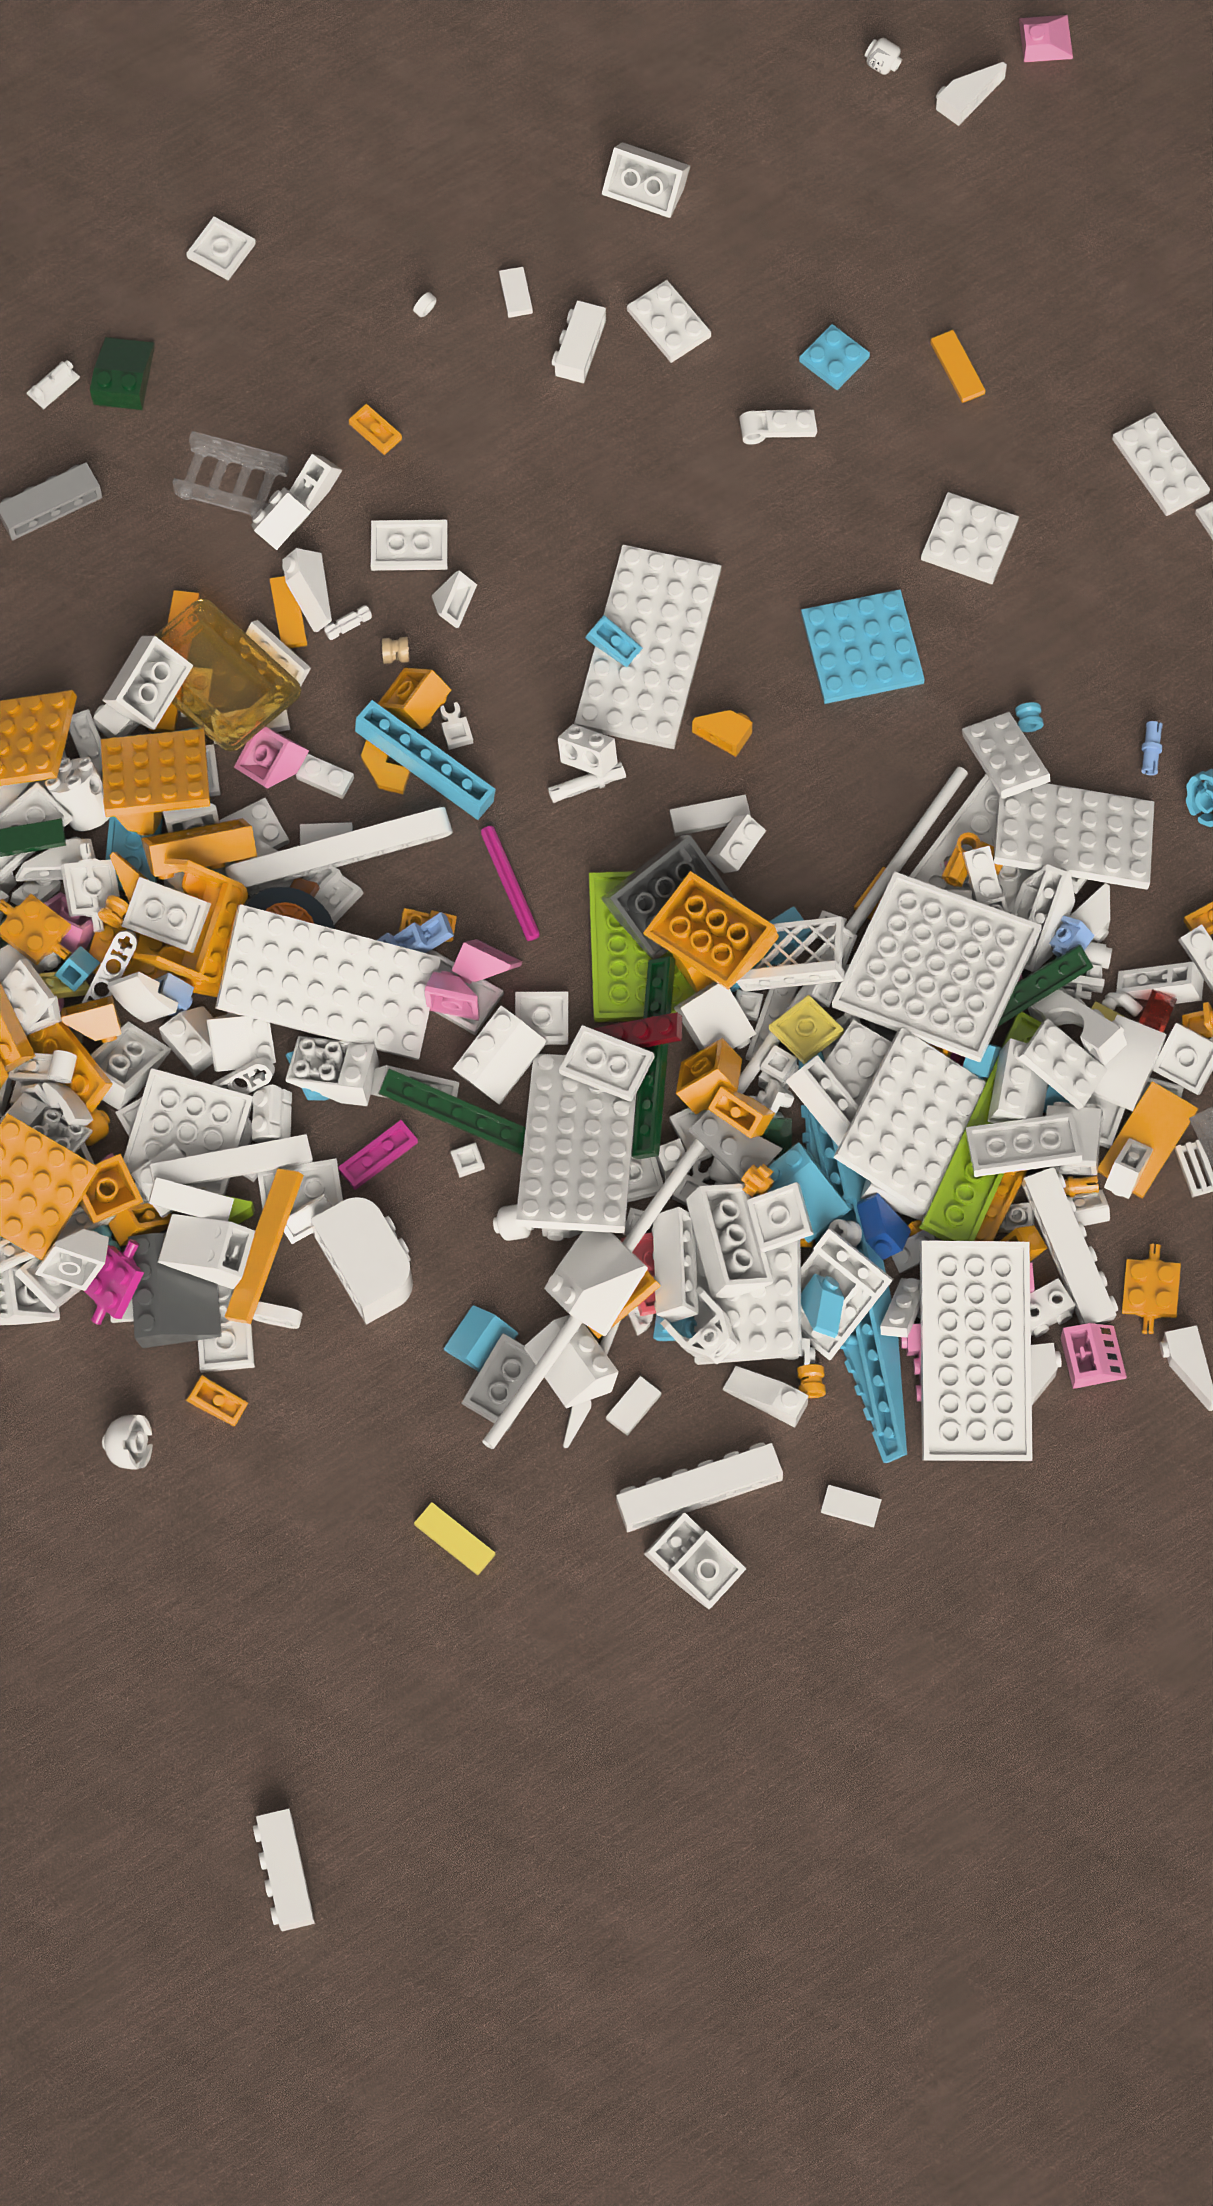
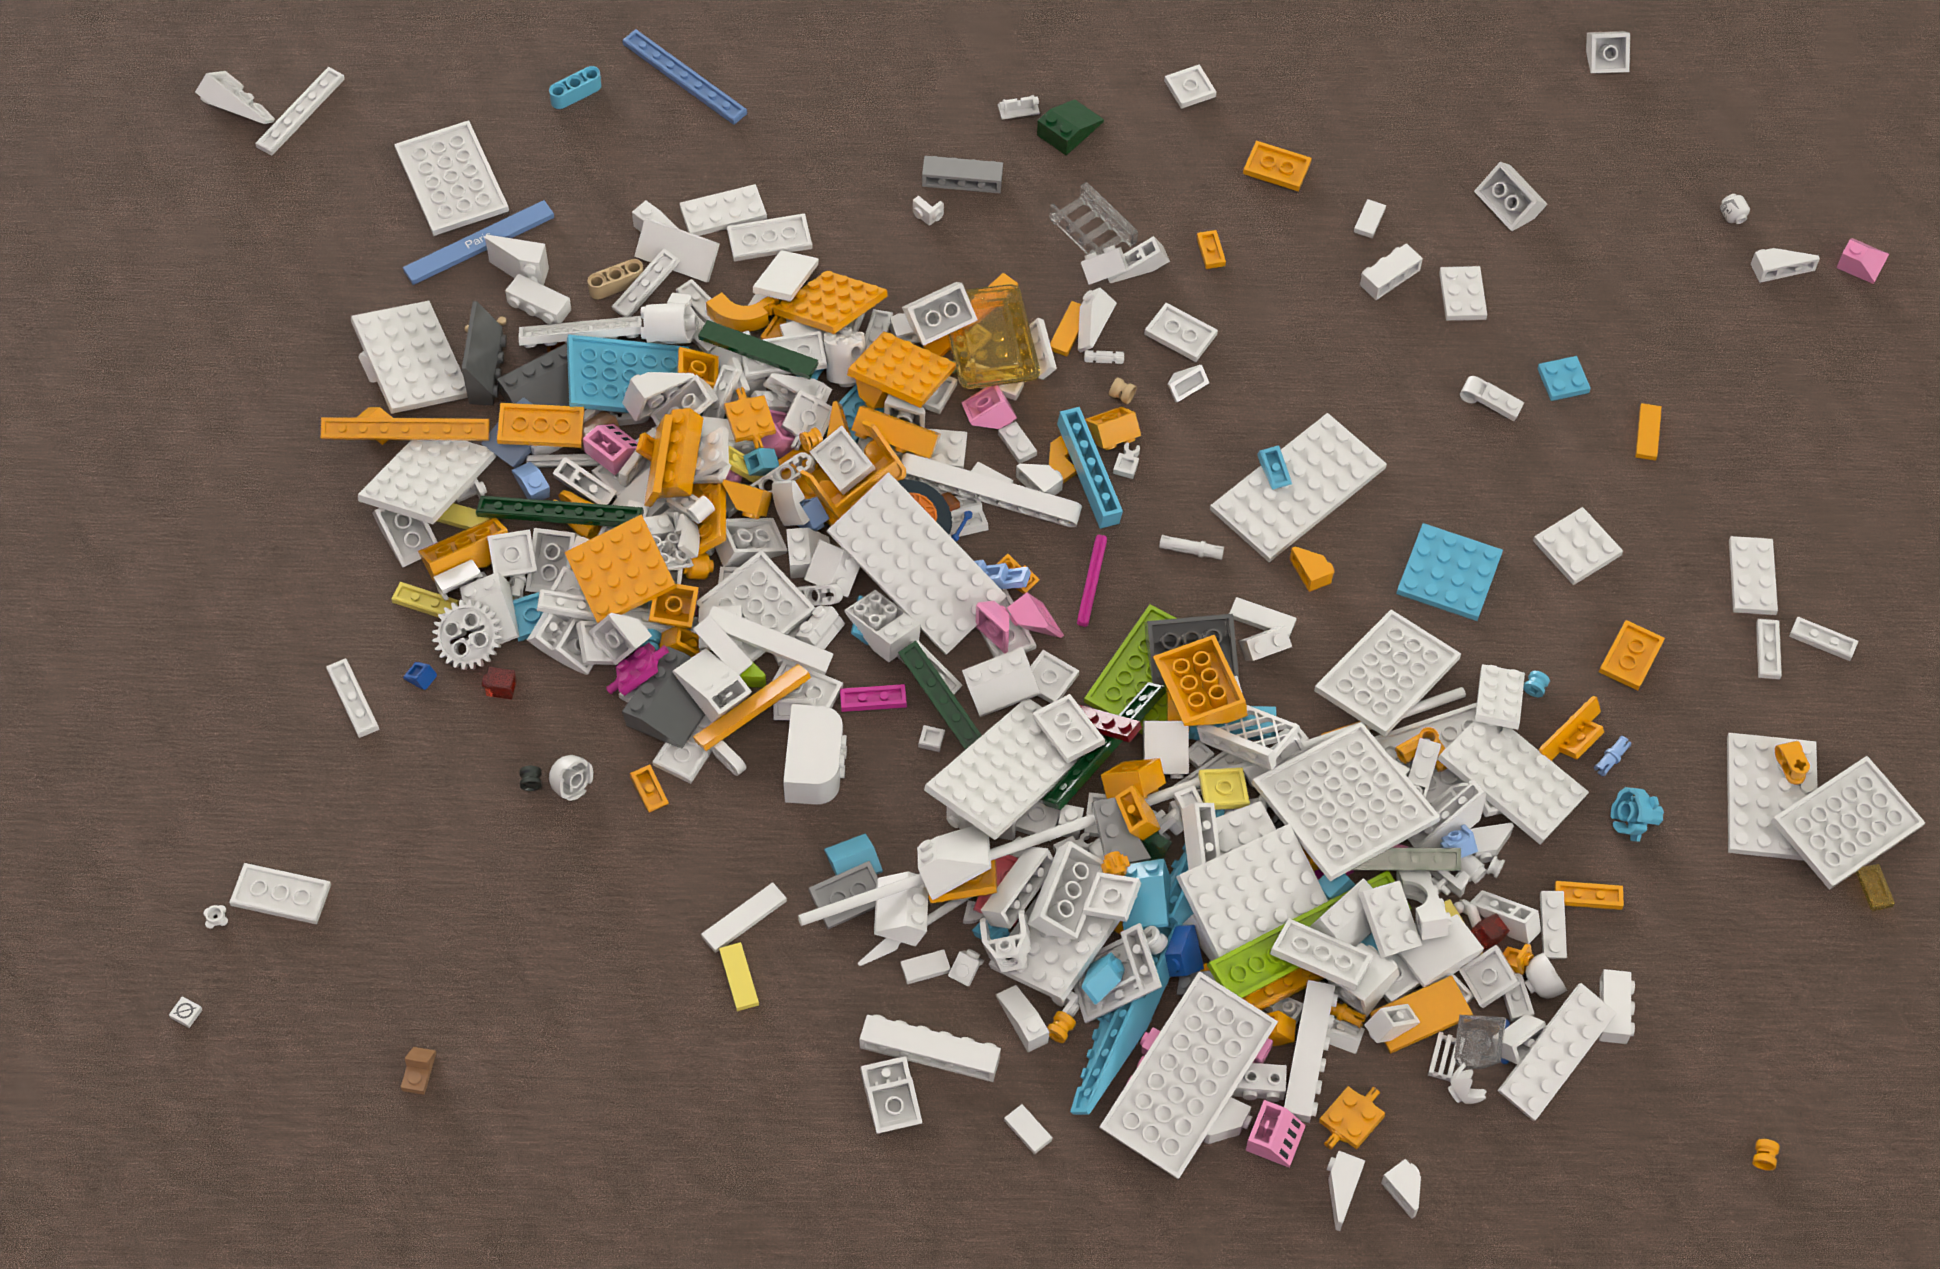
camera: 30 degrees right, 10 degrees down
(39, 569) = (926, 212): none -> white bracket
(87, 1470) = (530, 778): none -> pearl dark grey wheel
(201, 1850) = (418, 1070): none -> medium nougat slope
(285, 1870) = (461, 1118): white brick -> none
(332, 891) = (967, 515): none -> blue hinge
(378, 288) = (1277, 166): none -> light orange plate
(379, 804) = (1040, 478): none -> white slope
(414, 1473) = (744, 917): none -> white tile
(425, 304) = (1301, 192): white tile -> none
(506, 1224) = (927, 801): white head -> none
(587, 750) = (1205, 524): white brick -> none
(674, 1379) = (965, 966): none -> white bracket
(878, 798) = (1387, 672): none -> white plate
(902, 1309) = (1153, 1017): white plate -> none
(1100, 626) = (1631, 655): none -> light orange plate
(1104, 747) = (1576, 734): none -> light orange bracket
(1117, 938) = (1495, 866): none -> white bush

